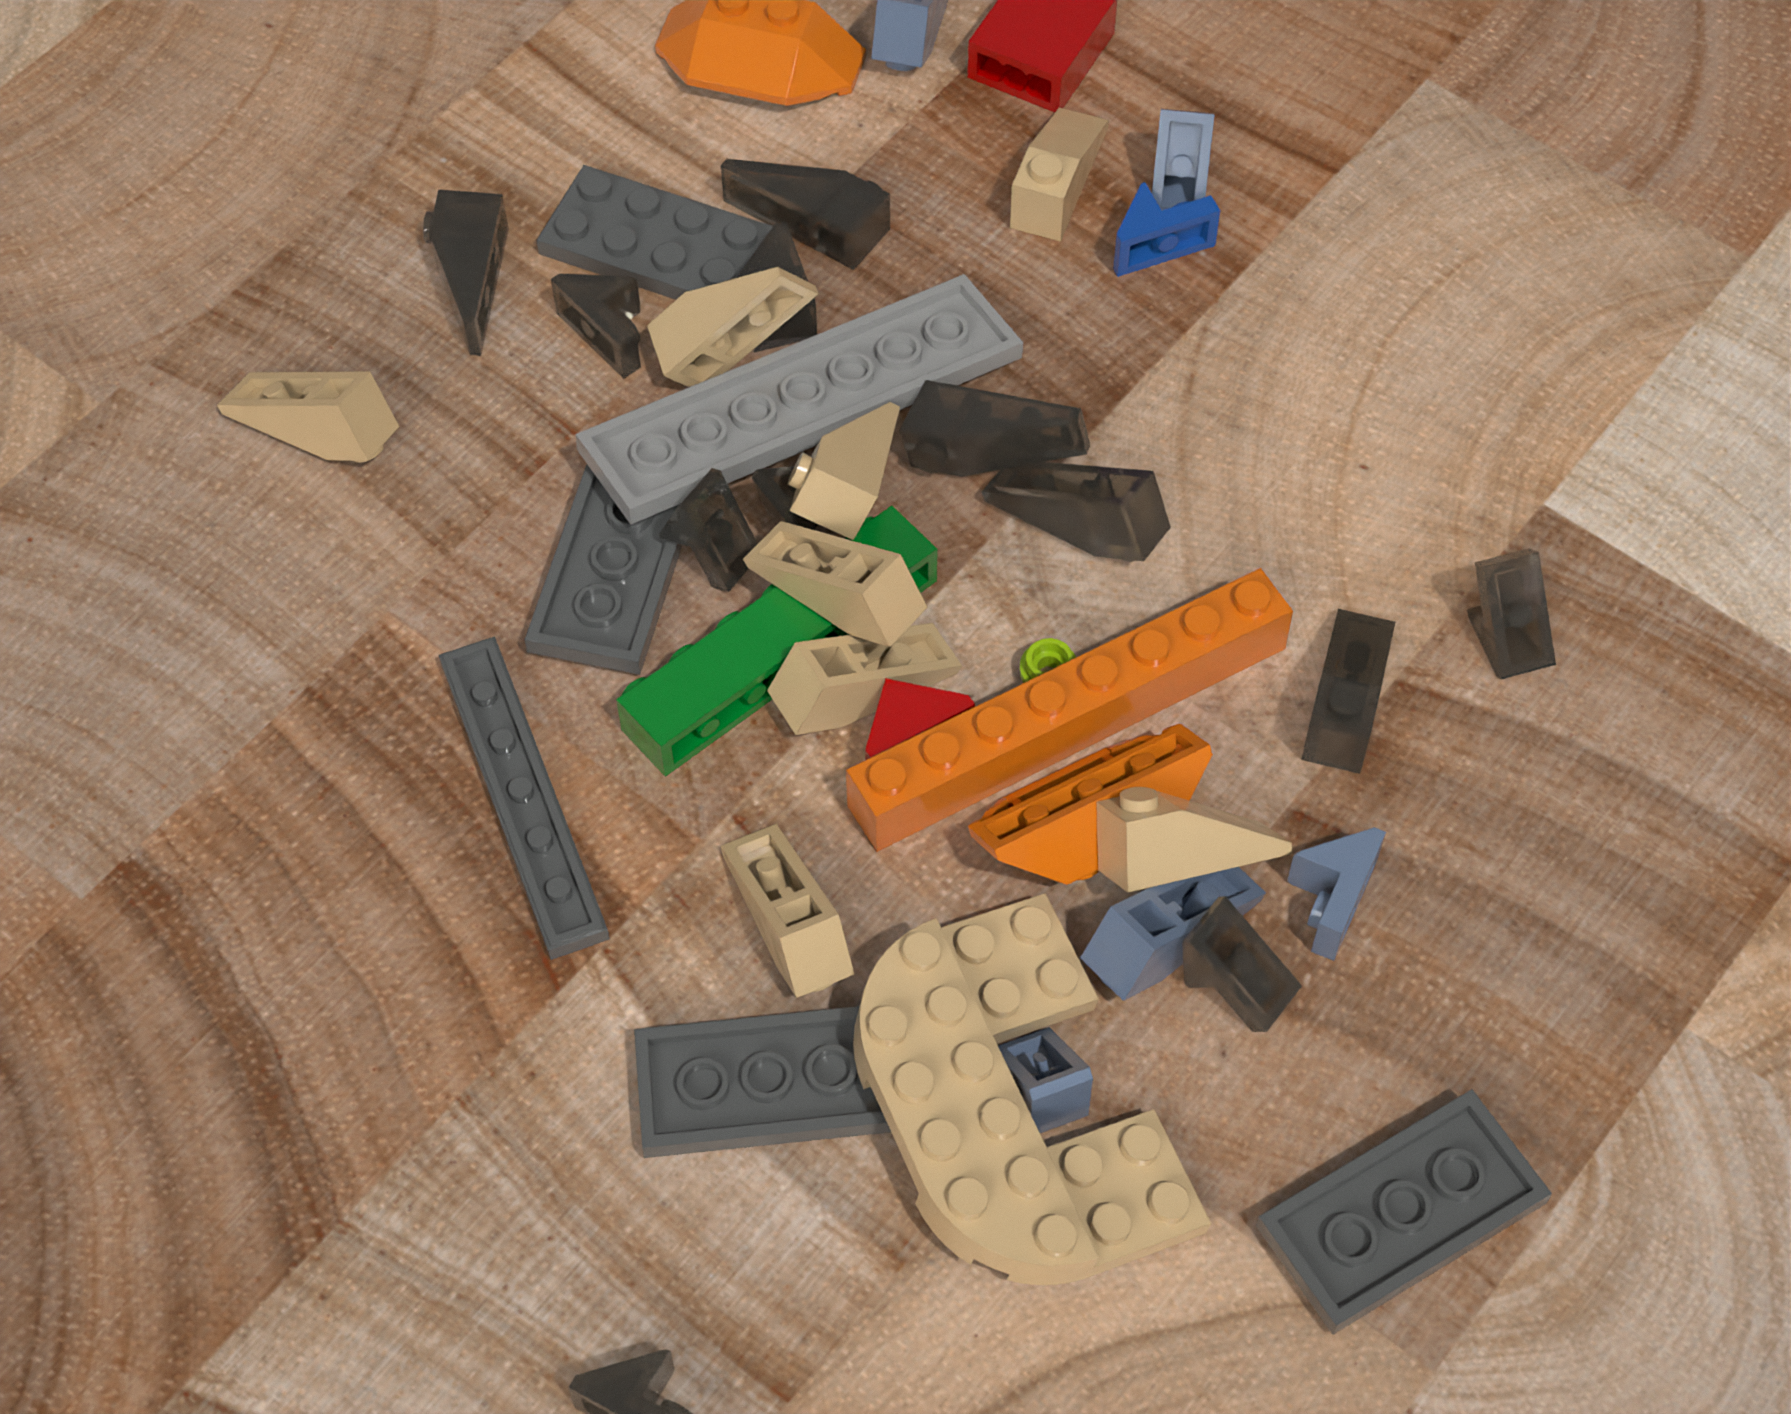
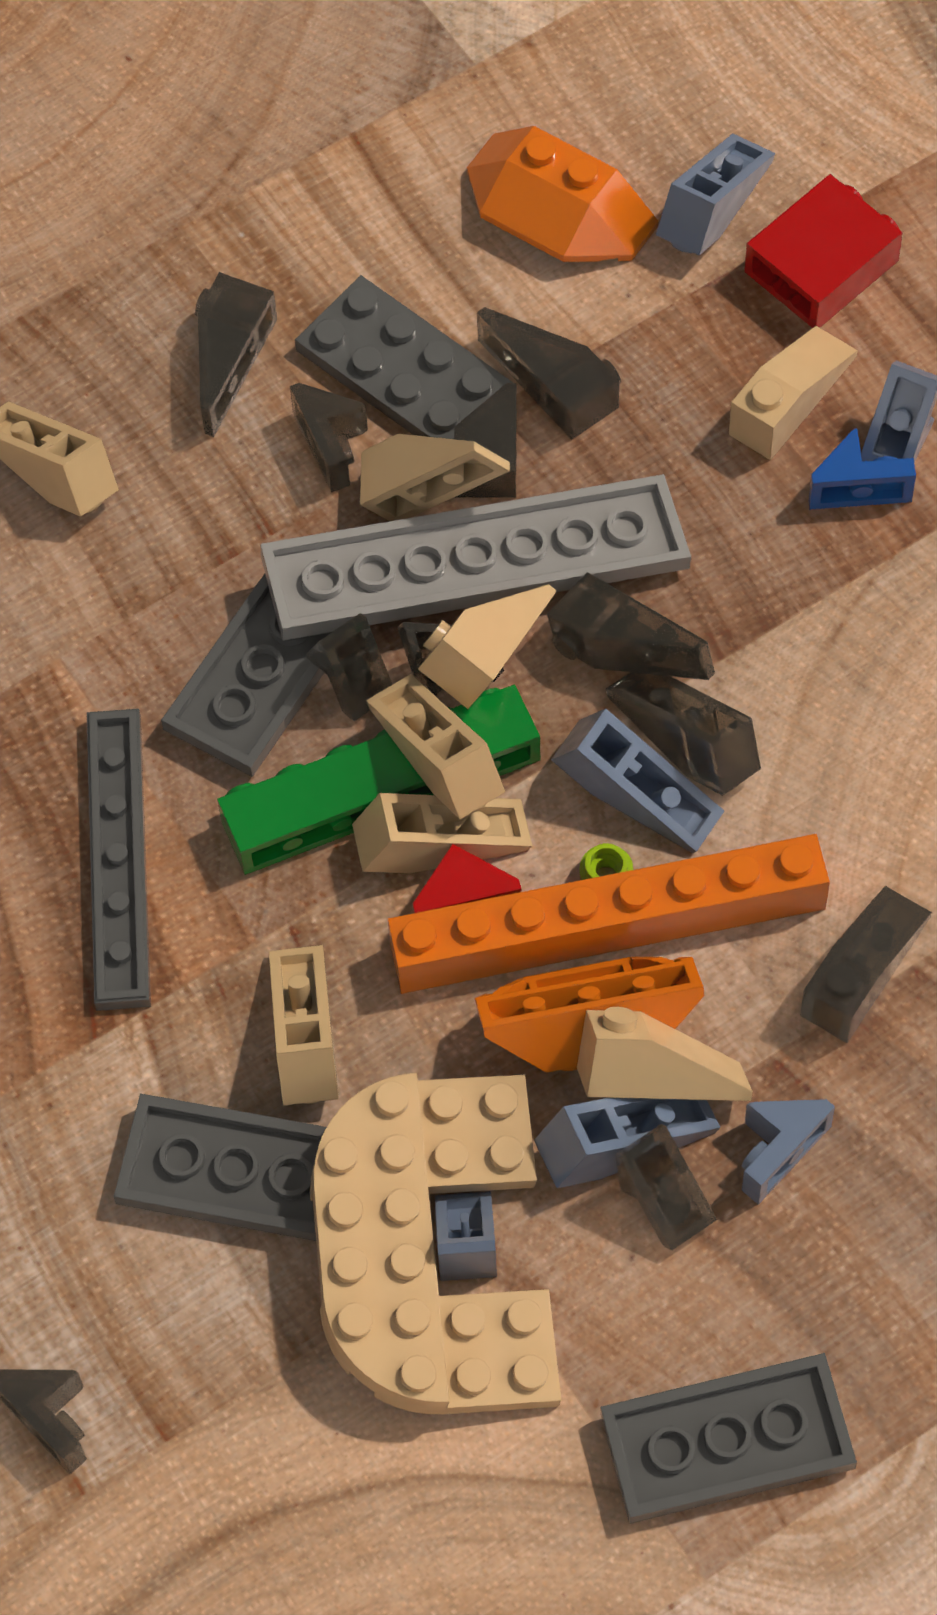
camera: 20 degrees right, 5 degrees up
(1046, 569) = (636, 780): none -> sand blue slope

